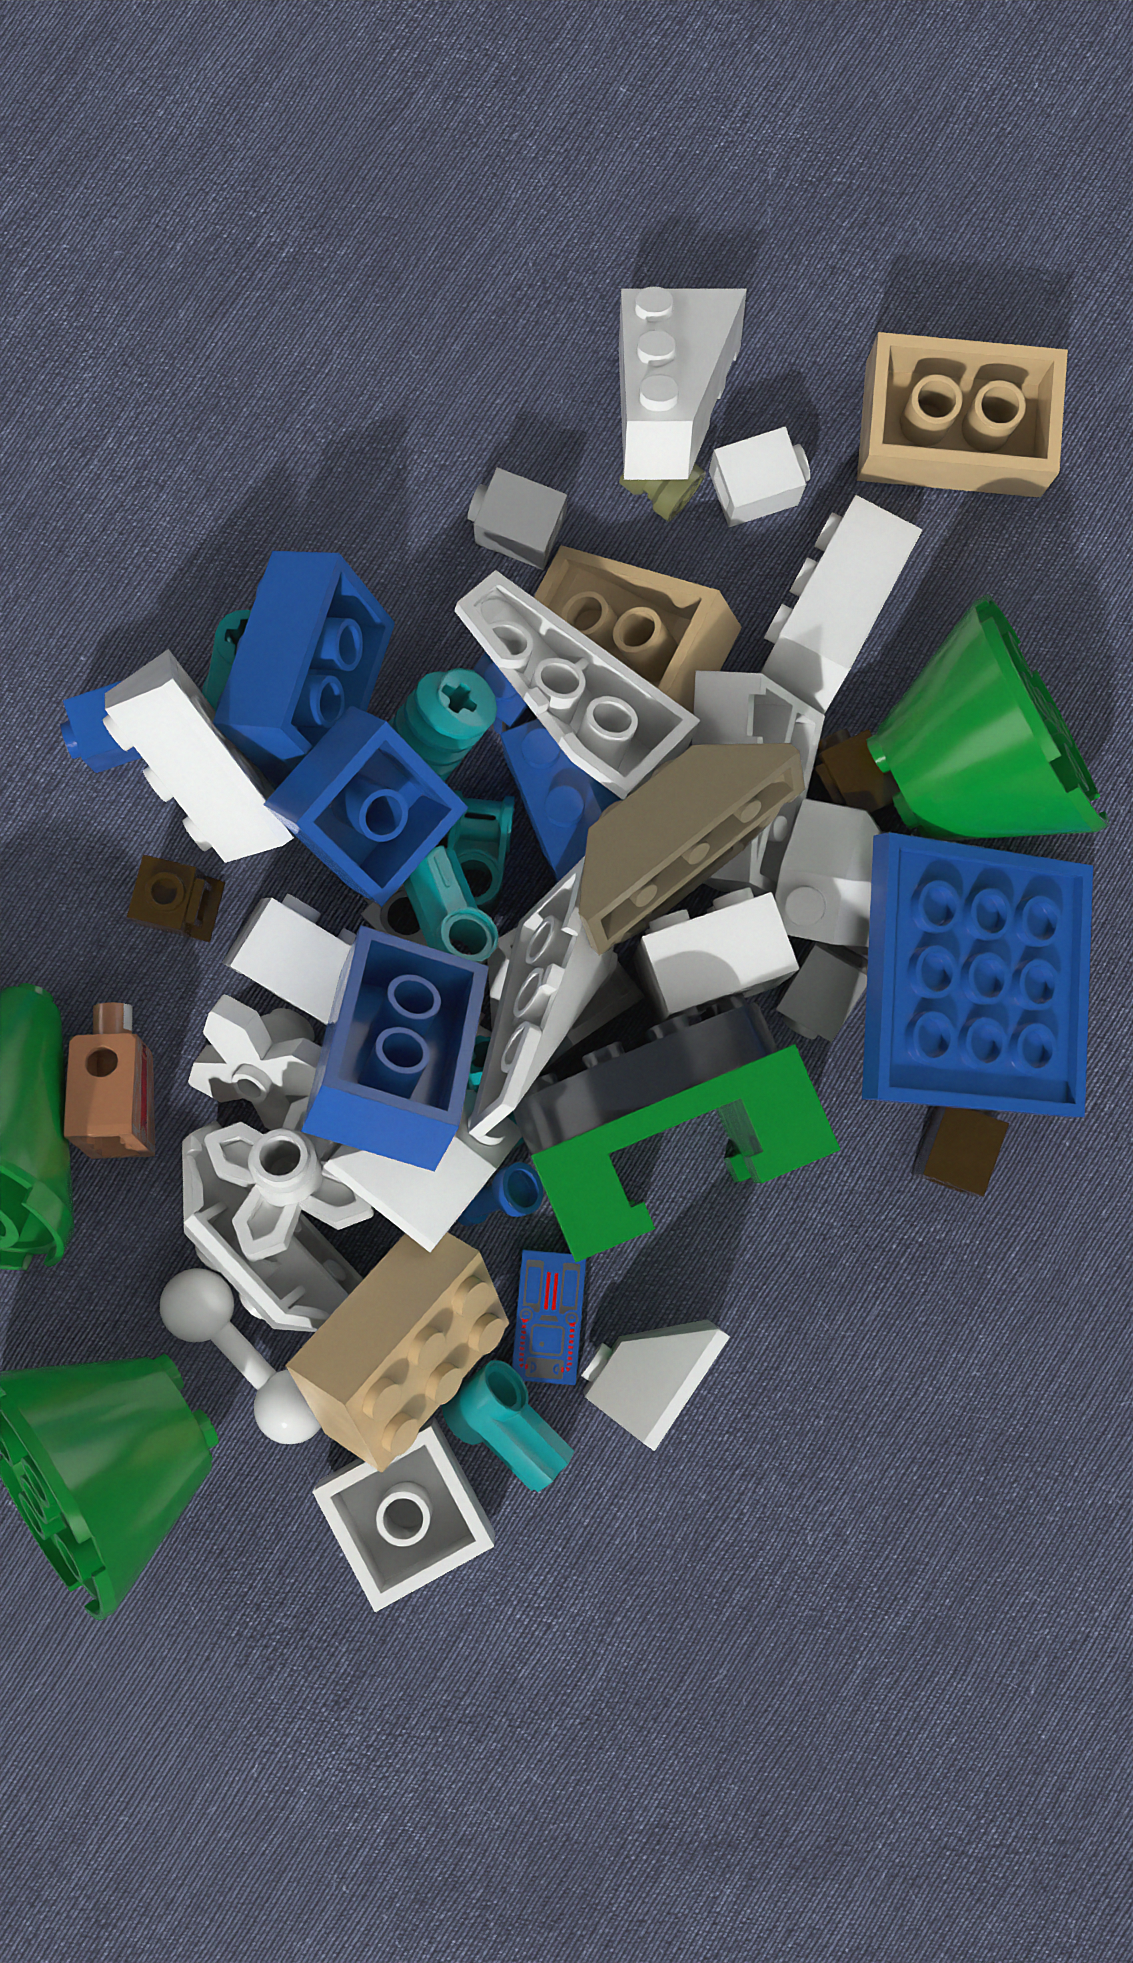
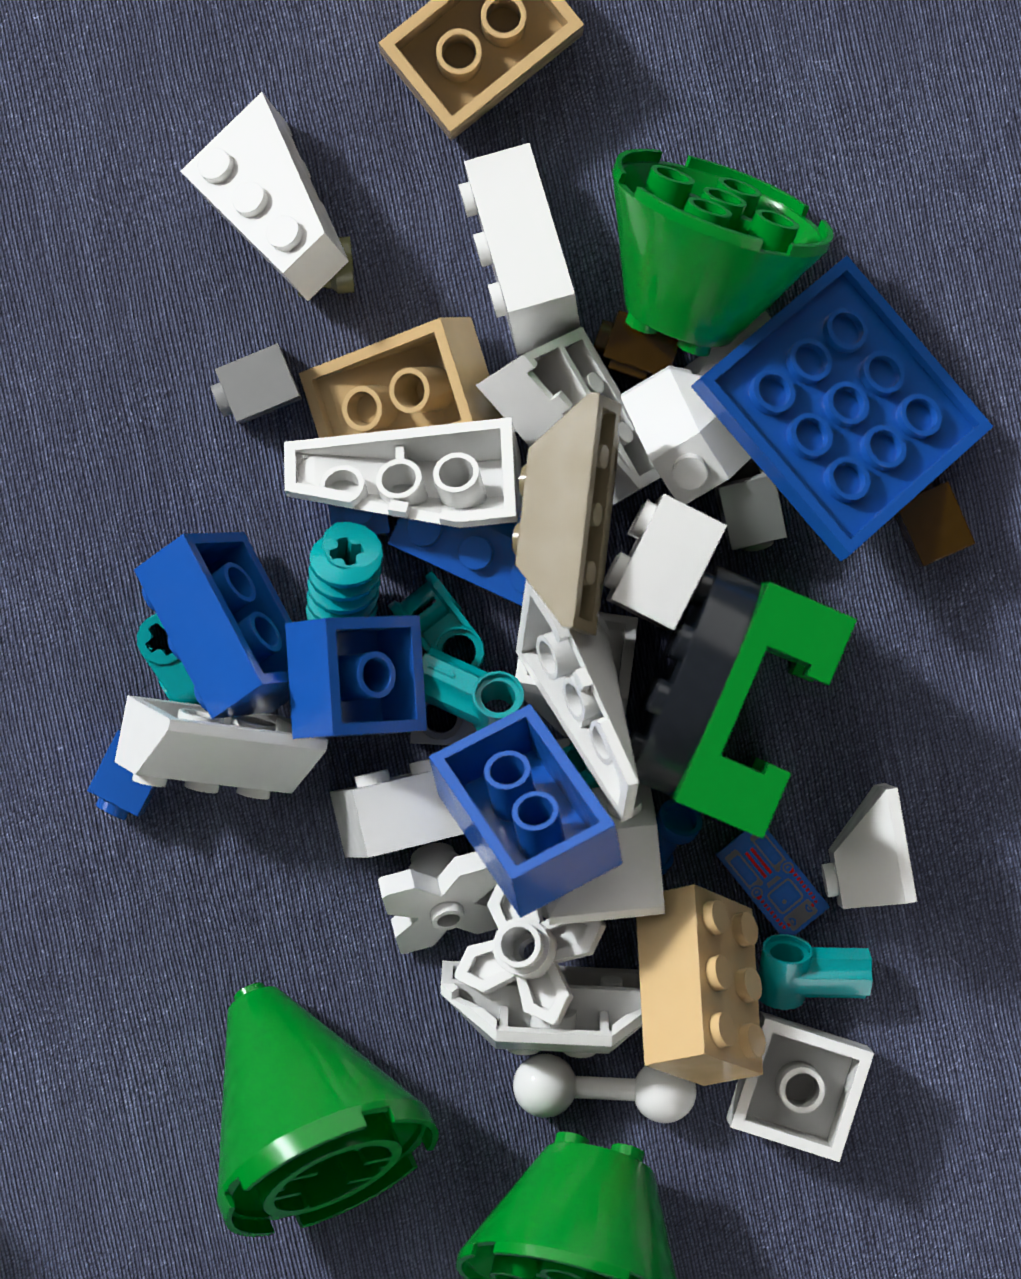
camera: 35 degrees left, 5 degrees up
(112, 1111) = (378, 1016): nougat torso -> none
(175, 899) = (281, 845): dark brown window -> none
(759, 476) = (386, 203): white brick -> none

